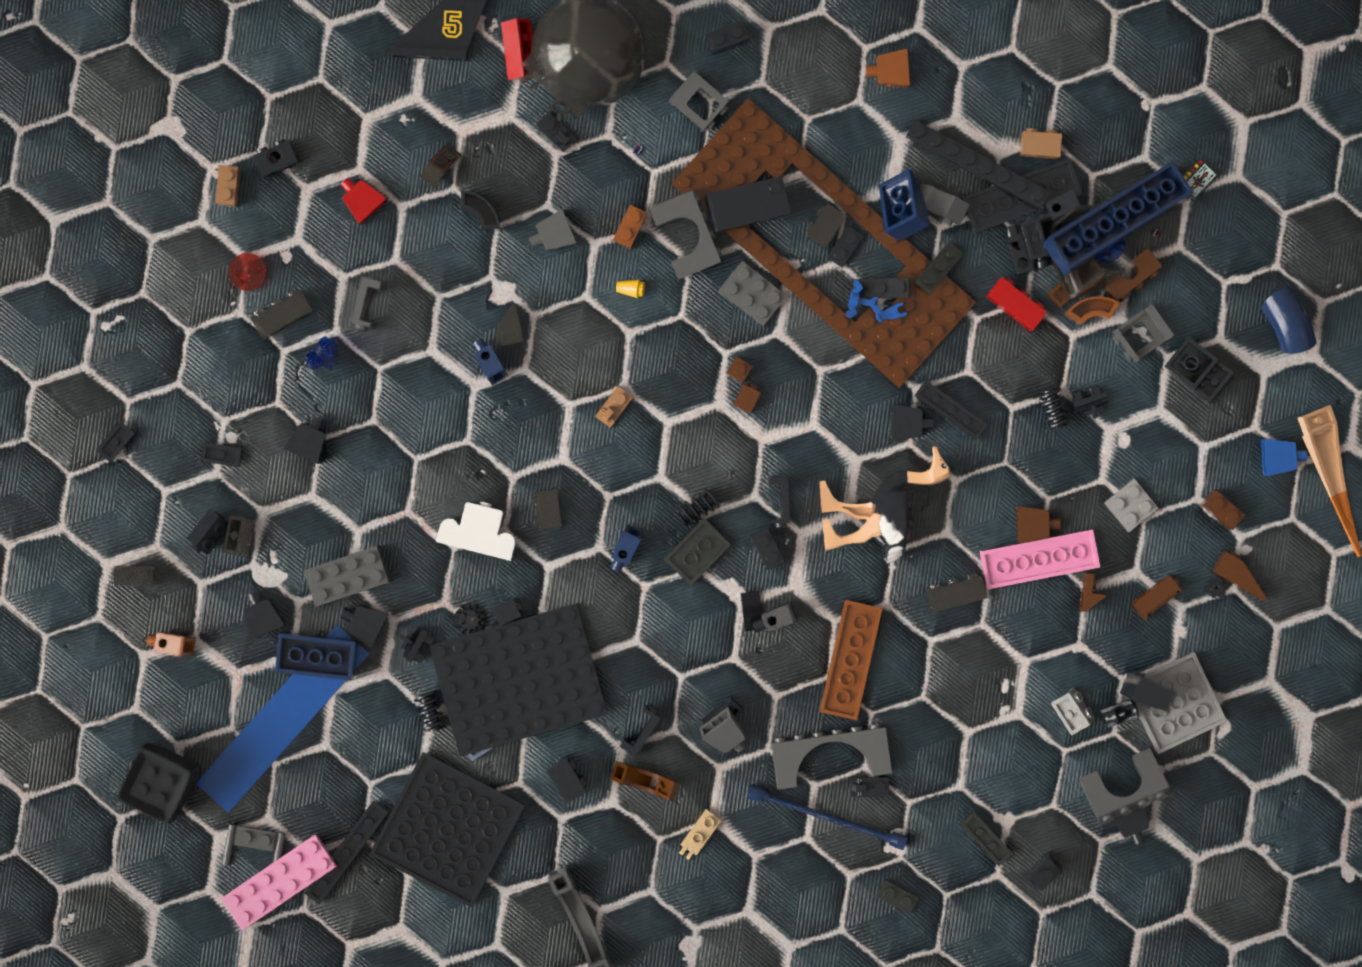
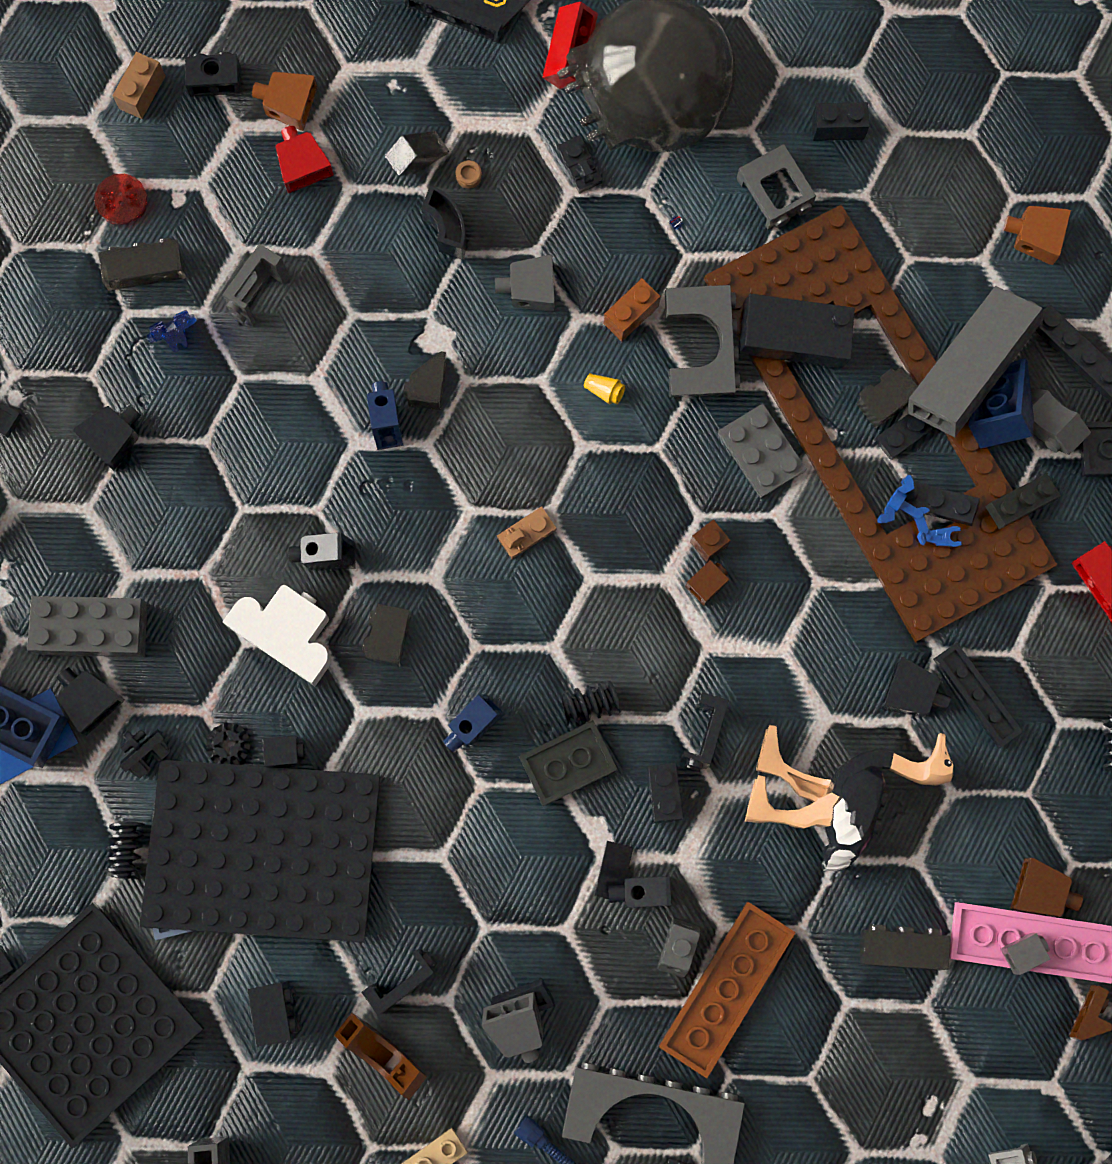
camera: 15 degrees right, 10 degrees down
(334, 157) = (287, 97): none -> dark orange torso
(481, 167) = (468, 174): none -> medium nougat tile
(490, 469) = (325, 552): none -> black torso
(811, 644) = (679, 947): none -> dark grey torso
(875, 182) = (975, 361): none -> dark grey brick
(1033, 569) = (1026, 953): none -> flat silver brick

